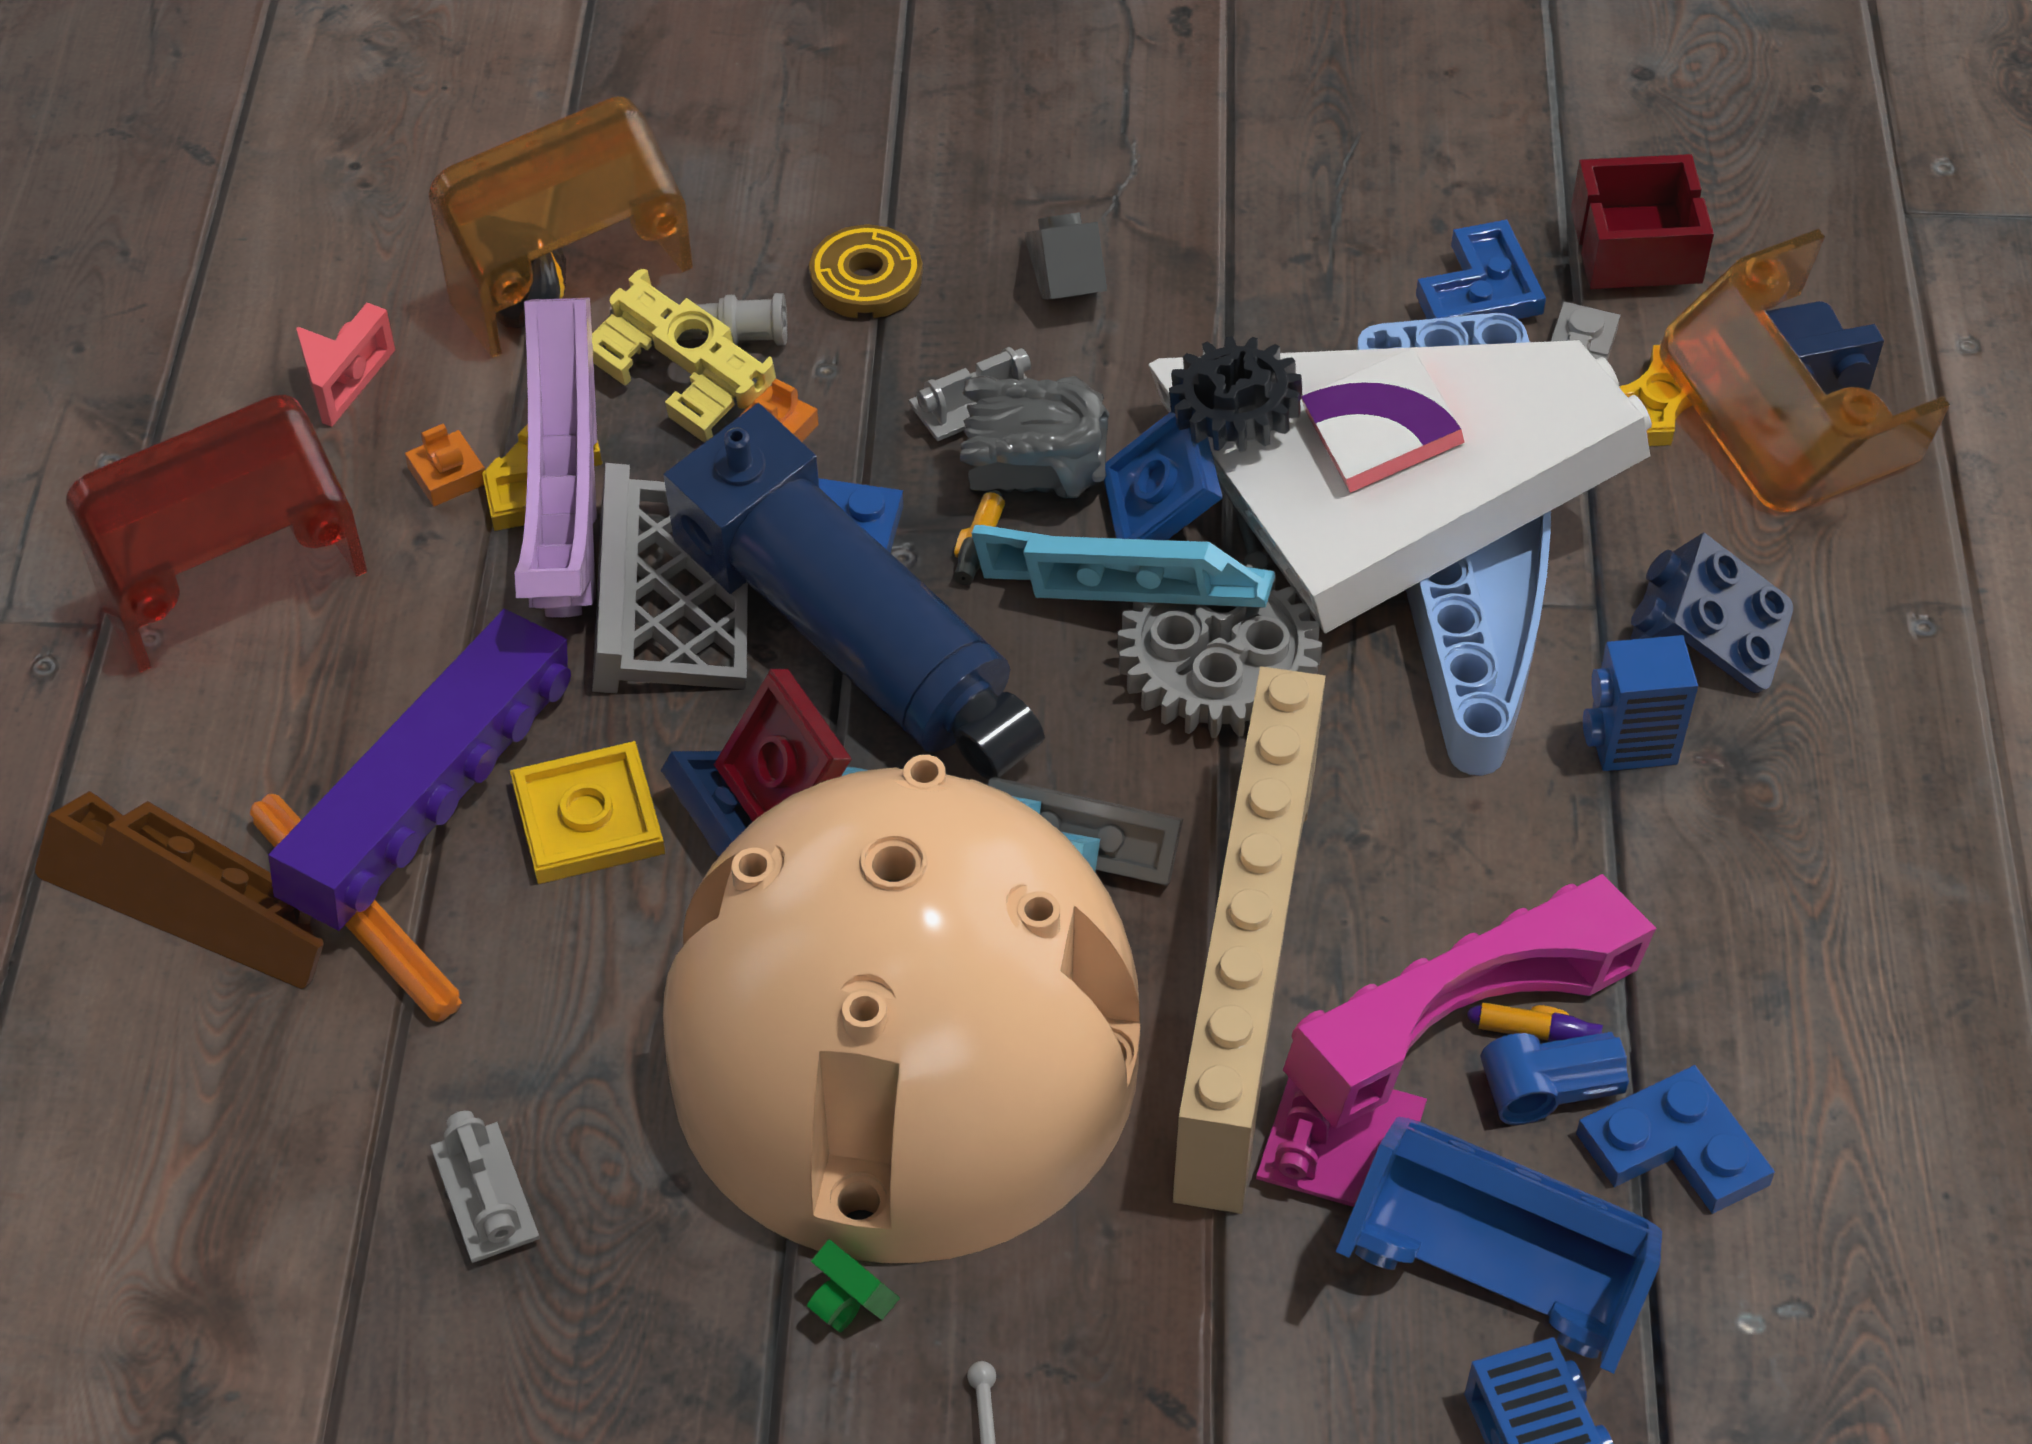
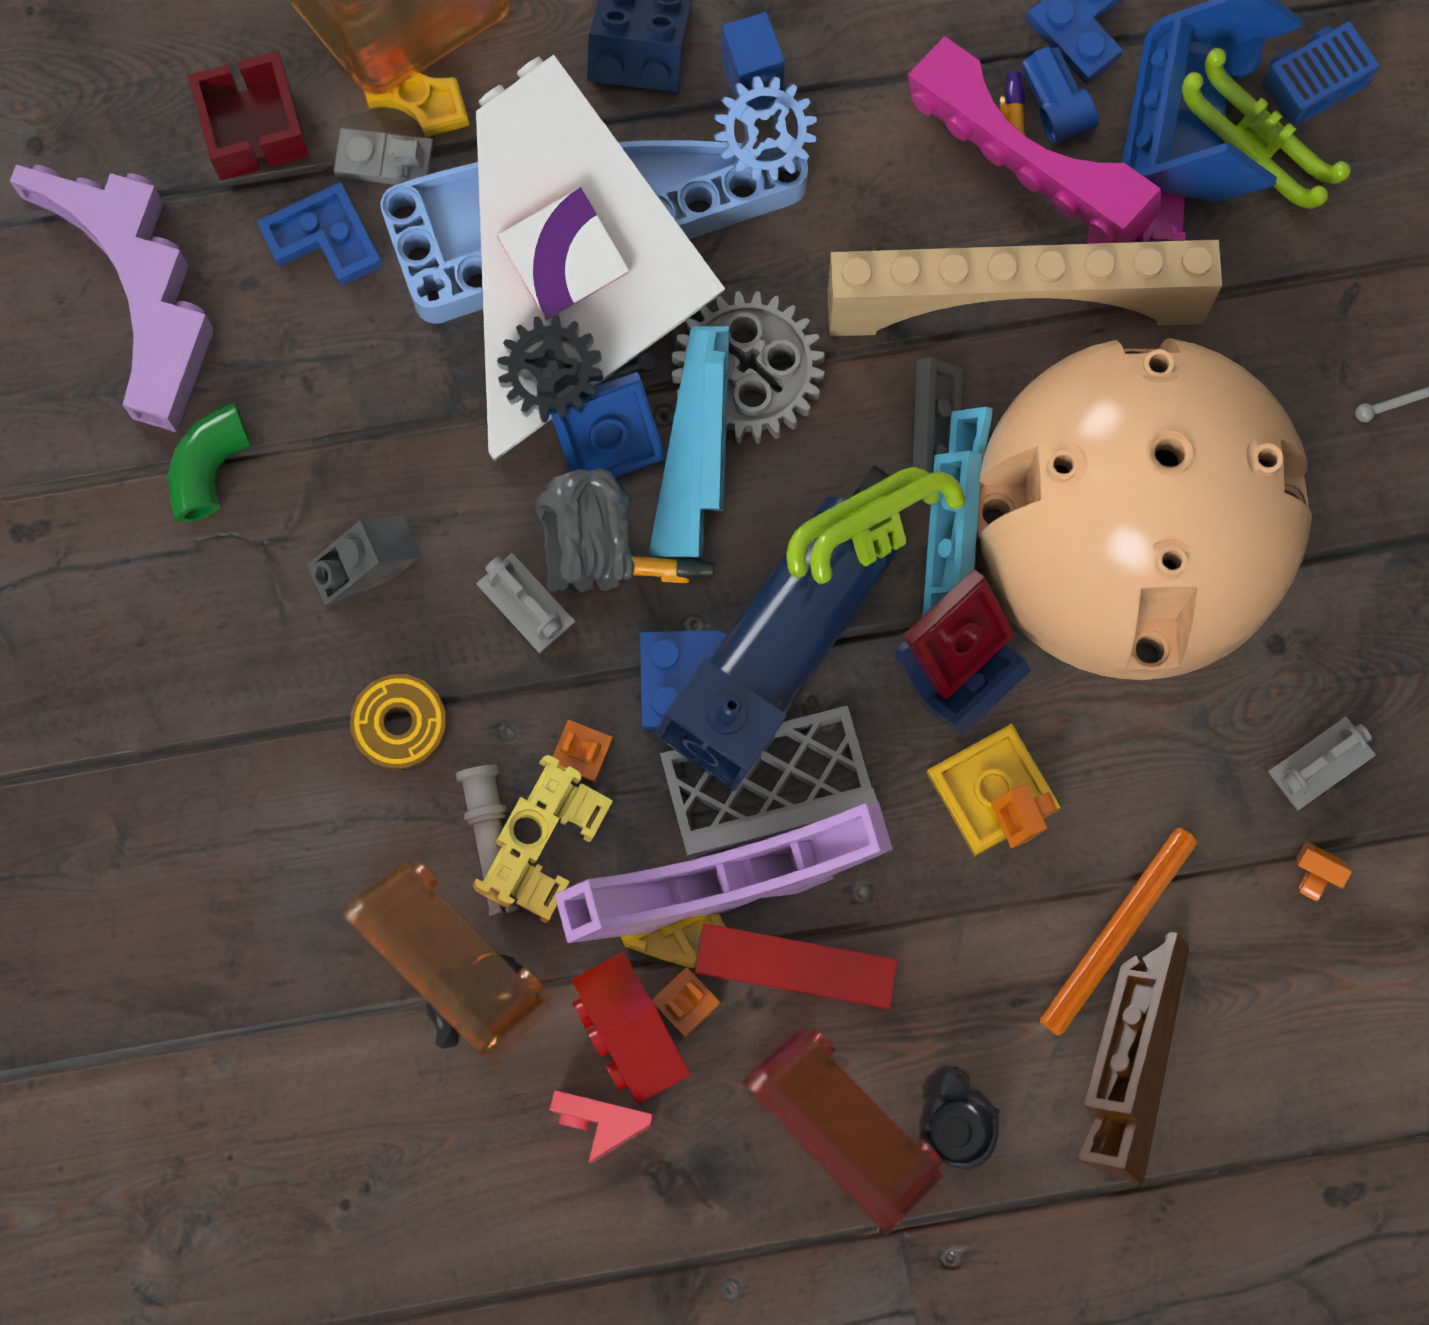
camera: 100 degrees left, 25 degrees up
(195, 671) = (957, 1119): none -> black hair
(339, 1144) = (1320, 868): none -> orange tile
(419, 770) = (1008, 907): dark purple brick -> none
(425, 378) = (627, 1029): none -> red brick
(440, 565) = (795, 966): none -> red tile
(531, 802) = (1022, 814): none -> orange tile
(848, 1289) = (1335, 501): green tile -> none
(952, 662) = (869, 520): none -> lime piece
(1221, 140) = (198, 460): none -> green cylinder
(1453, 127) = (166, 336): none -> lavender arch
(1453, 1318) = (1260, 133): none -> lime piece
(1526, 671) = (782, 140): none -> light blue gear

